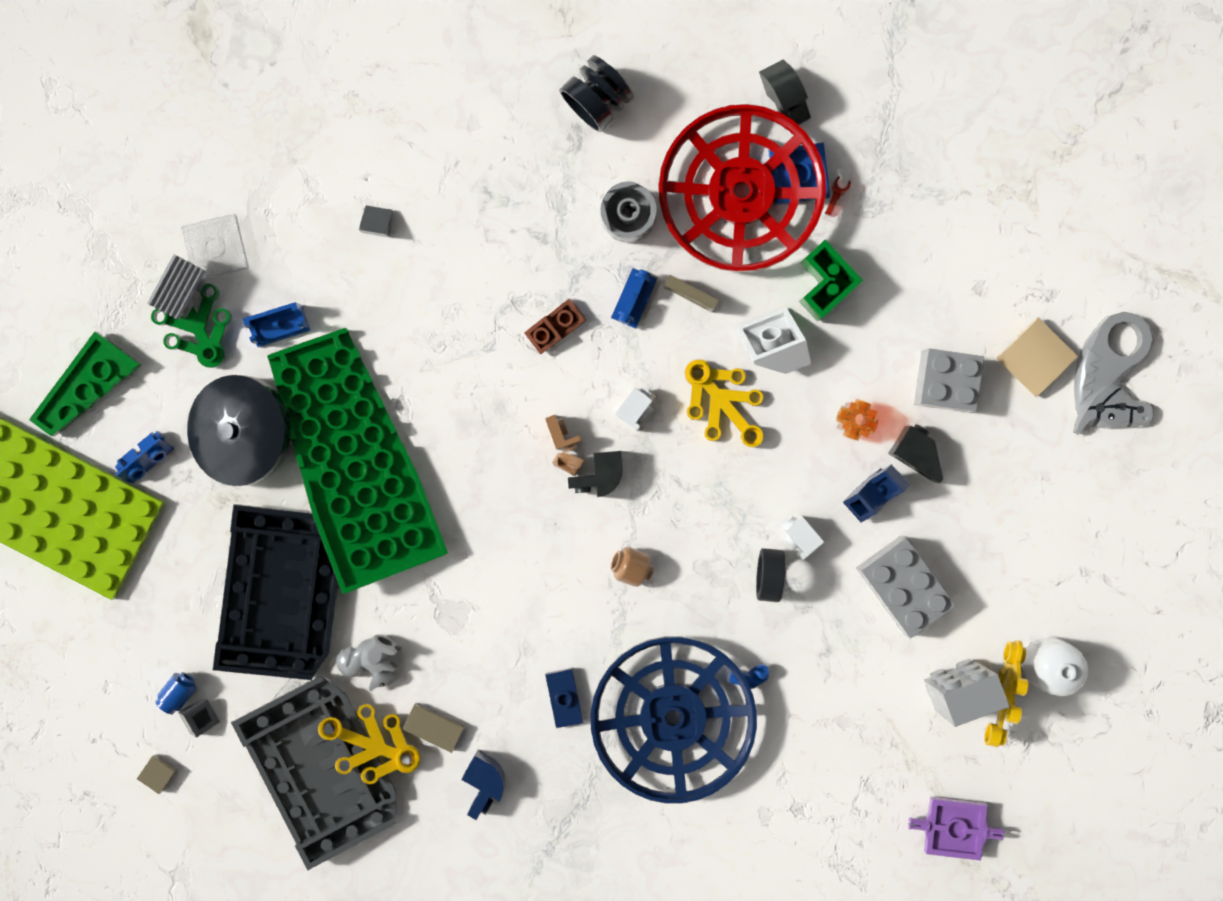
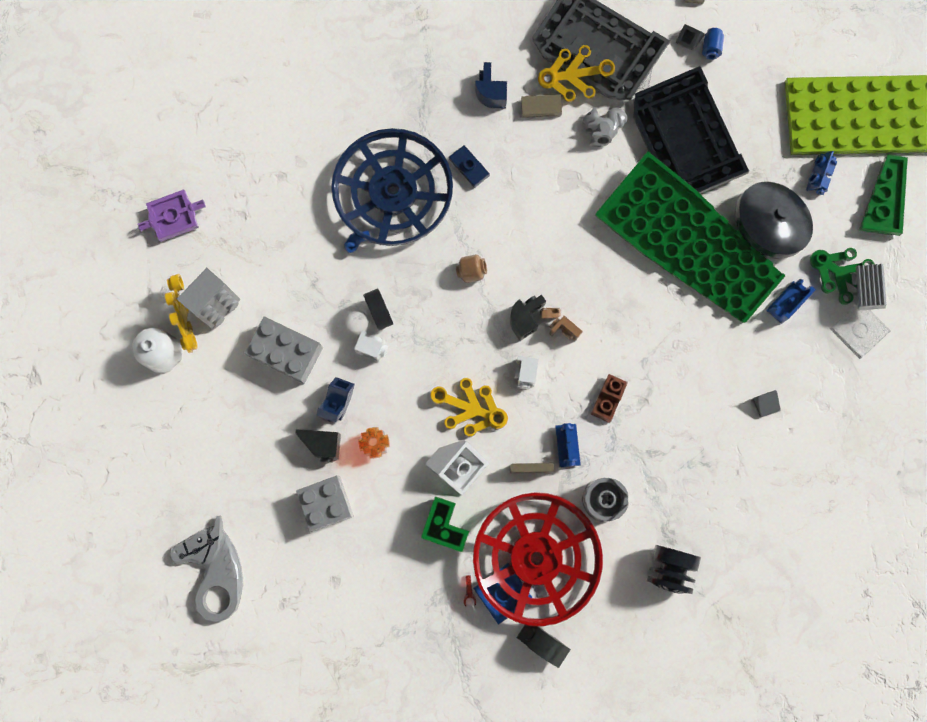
camera: 150 degrees right, 10 degrees down
(1037, 356) = (271, 554): tan slope -> none

